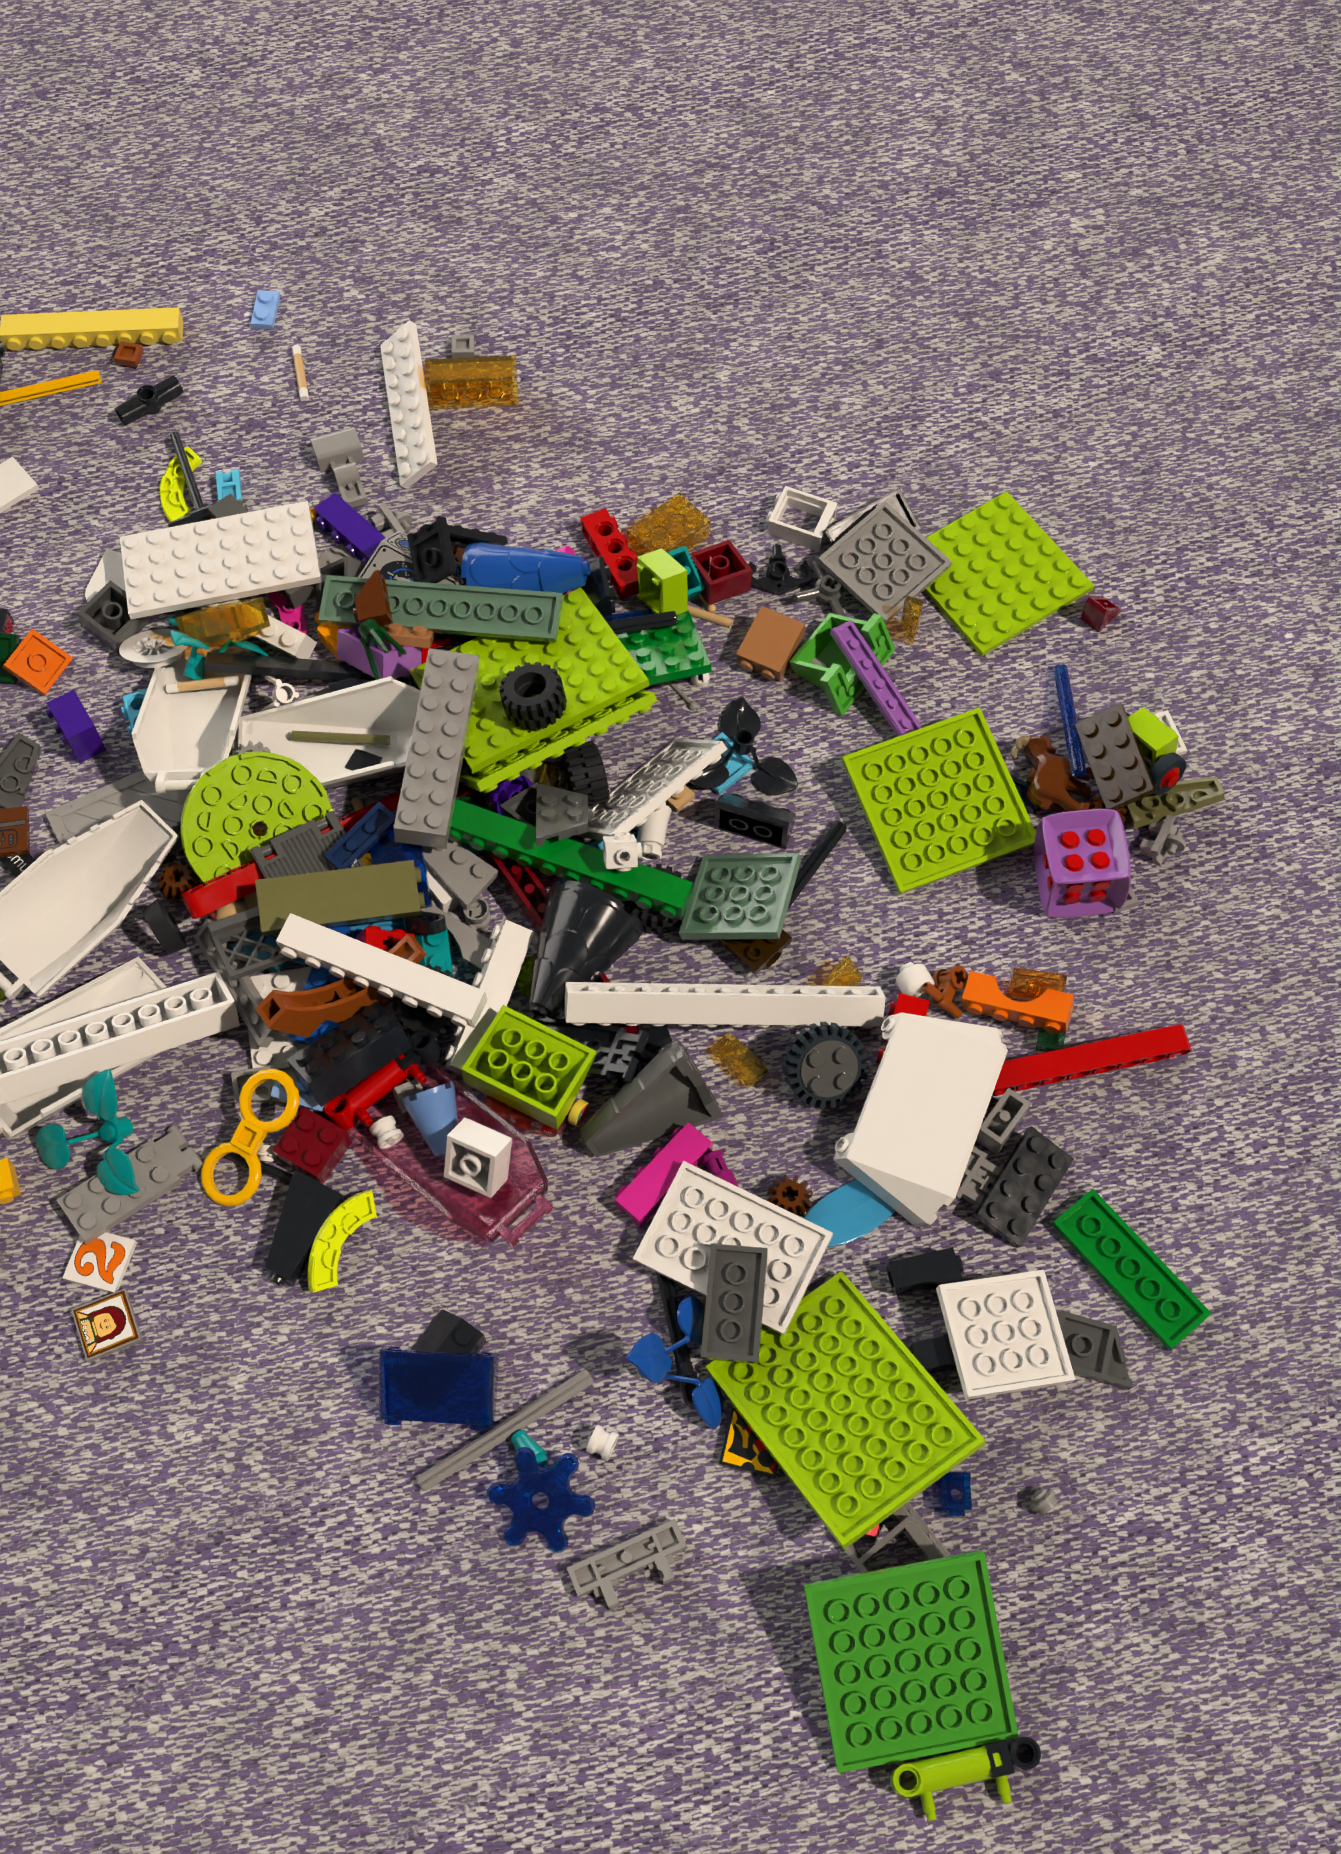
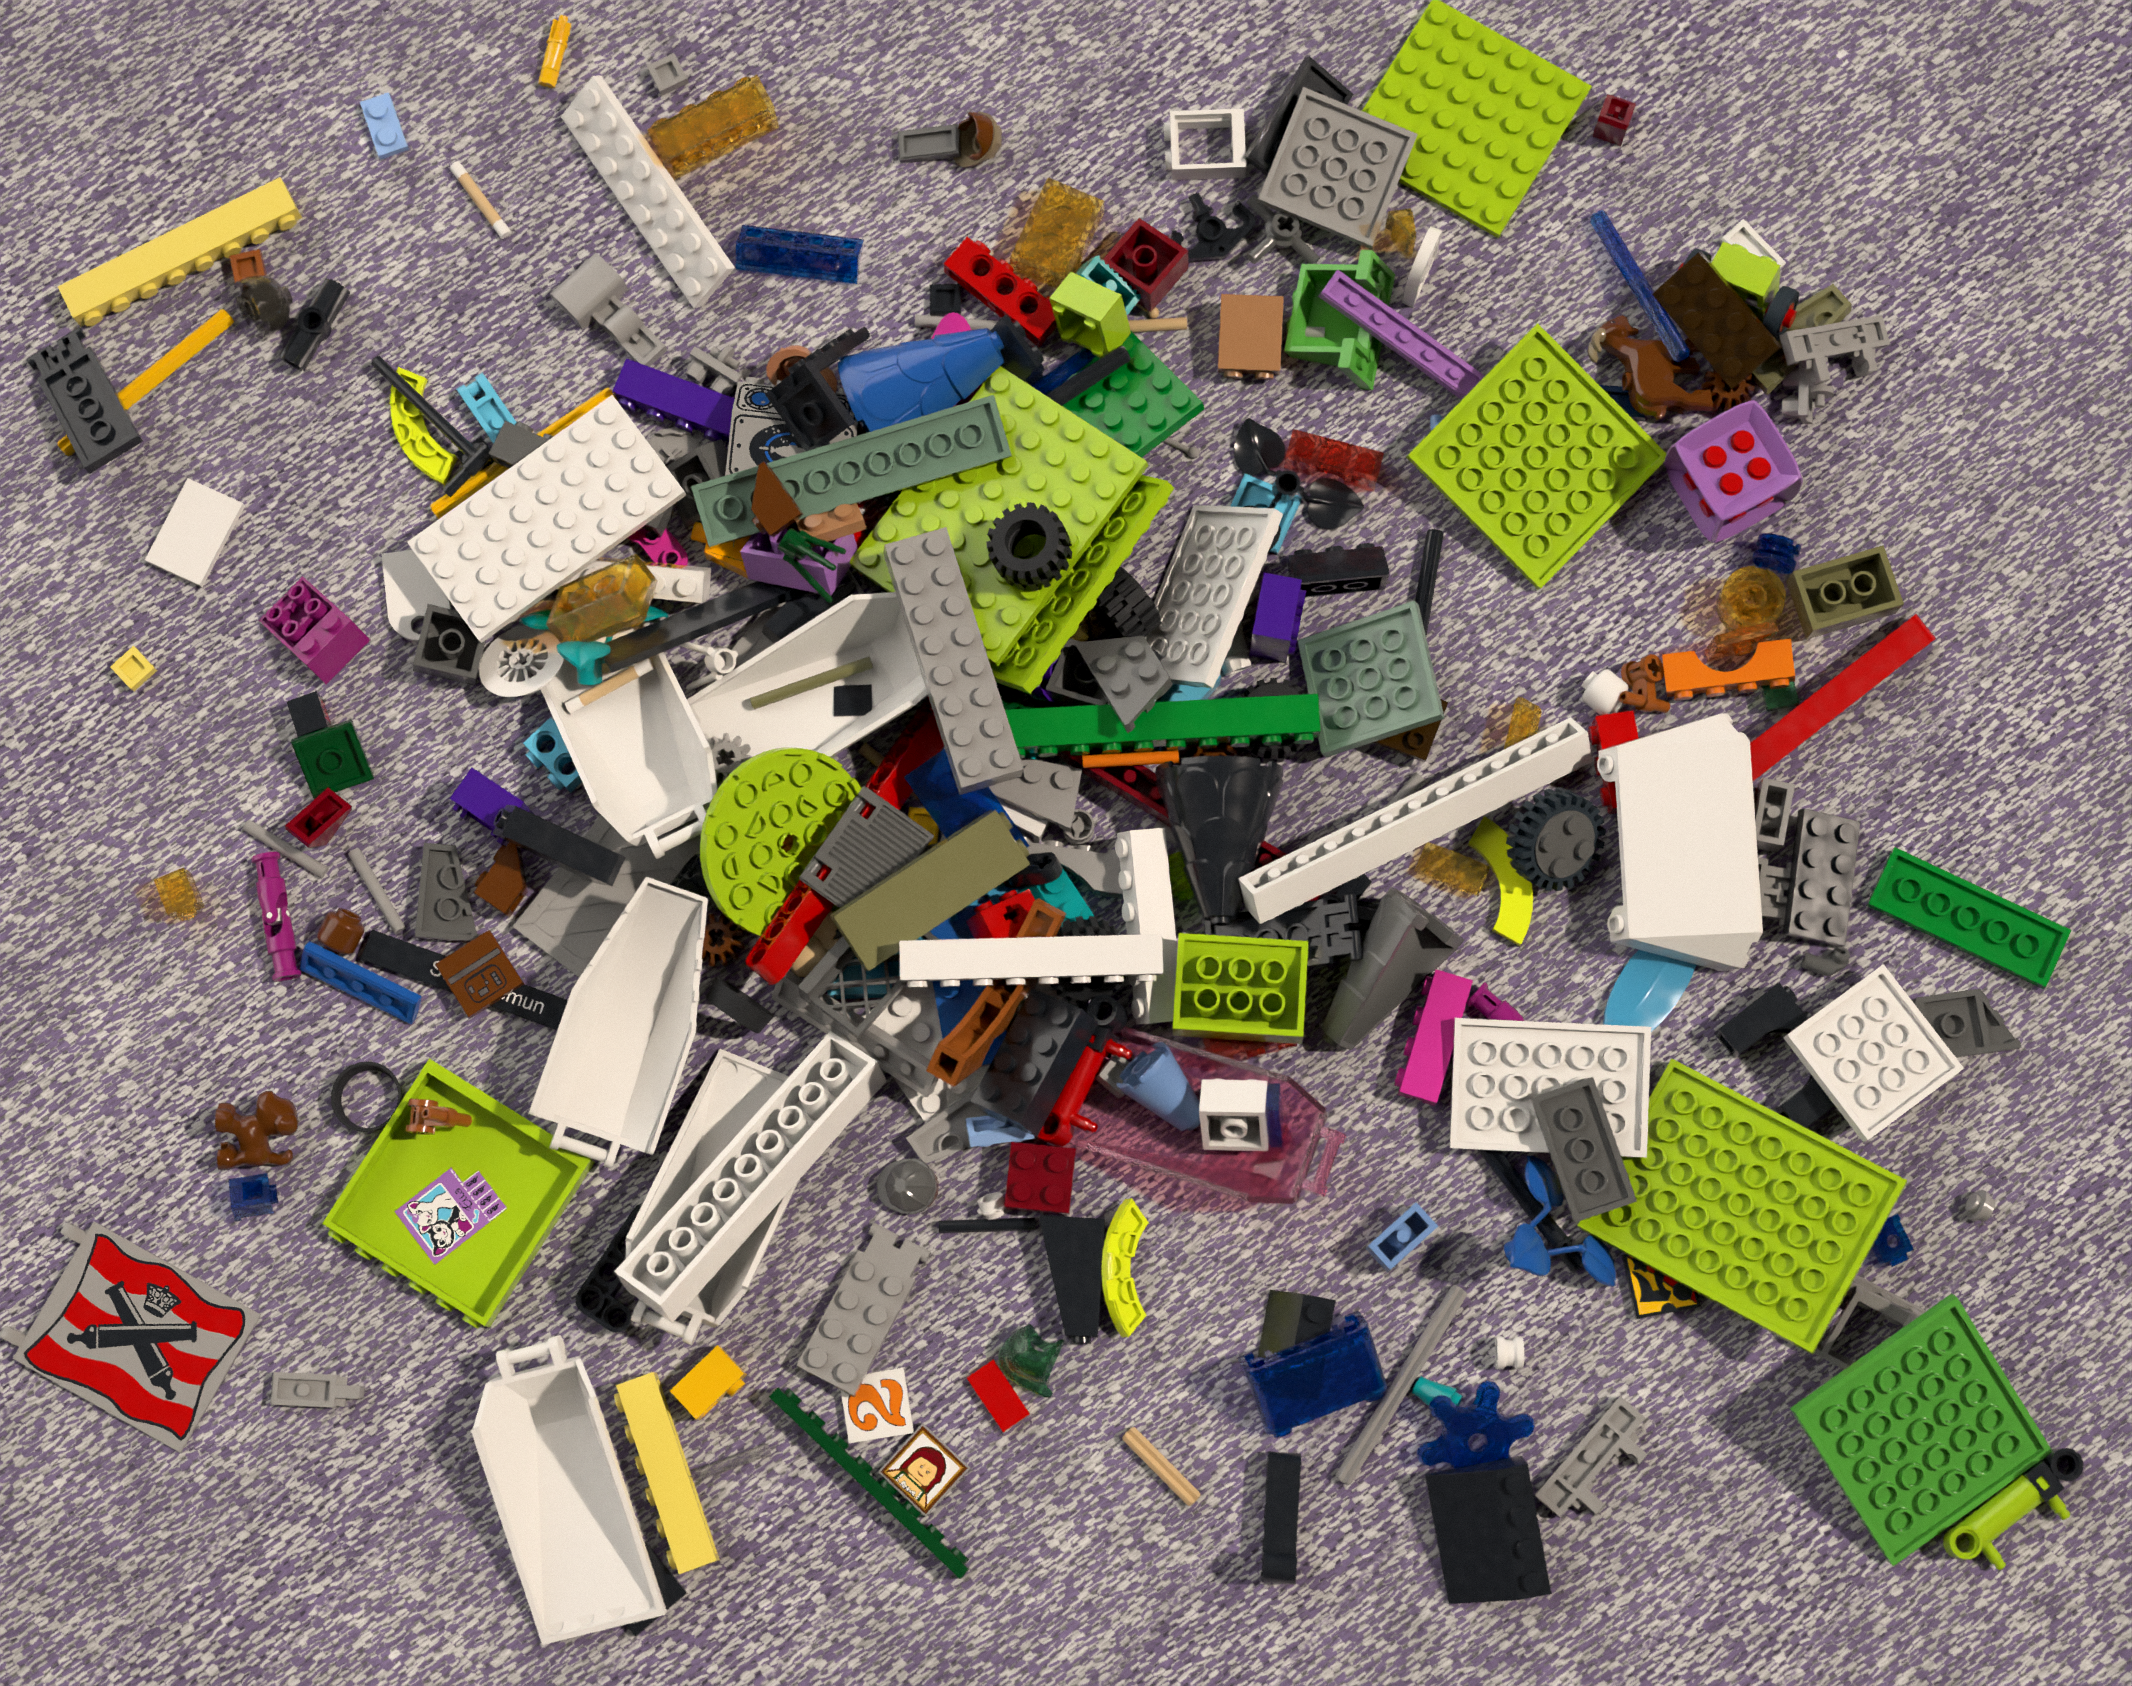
camera: 20 degrees left, 15 degrees up
(33, 577) = (314, 630): none -> magenta slope
(37, 662) = (392, 742): orange plate -> none
(58, 781) = (505, 882): none -> reddish brown slope
(63, 1324) = (880, 1490): none -> dark green plate
(99, 761) = (558, 845): none -> black slope
(116, 1169) = (796, 1237): teal plant -> none
(124, 374) = (264, 300): none -> clear smoke cylinder
(193, 1295) = (998, 1396): none -> red tile
(215, 1110) = (907, 1186): none -> dark grey piece
(224, 1276) = (1025, 1364): none -> clear green piece
(249, 1137) = (970, 1201): yellow bar -> none
(286, 1407) = (1161, 1466): none -> tan axle
(353, 1492) = (1281, 1518): none -> black beam
(361, 837) = (917, 806): dark blue plate -> none
(386, 1132) = (1113, 1127): white wheel -> none
(401, 305) = (554, 52): none -> yellow piece
(487, 480) = (799, 255): none -> clear blue fence
(507, 1169) = (1274, 1115): none -> clear blue tile
(512, 1579) = (1488, 1532): none -> black slope
(528, 873) = (1129, 759): none -> orange bar
(561, 1311) = (1401, 1237): none -> medium blue brick
(574, 541) = (945, 299): none -> black tile
(578, 1112) = (1310, 1009): light yellow tile -> none
(612, 449) = (929, 143): none -> dark grey tile
(621, 851) = (1226, 697): white brick -> none
(647, 457) = (978, 139): none -> piece
(691, 825) = (1277, 618): none -> dark purple brick
(779, 1095) = (1515, 891): none -> neon yellow tile
(796, 1191) = (1580, 991): reddish brown gear -> none
(805, 755) = (1352, 463): none -> clear red arch
(914, 642) = (1422, 265): none -> white tile
(1000, 1256) = (1828, 964): none -> dark grey arm
(1059, 955) = (1750, 584): none -> clear yellow brick
(1092, 938) = (1776, 552): none -> clear blue wheel
(1133, 986) = (1844, 592): none -> olive brick
(1186, 805) = (1817, 344): none -> light grey hinge

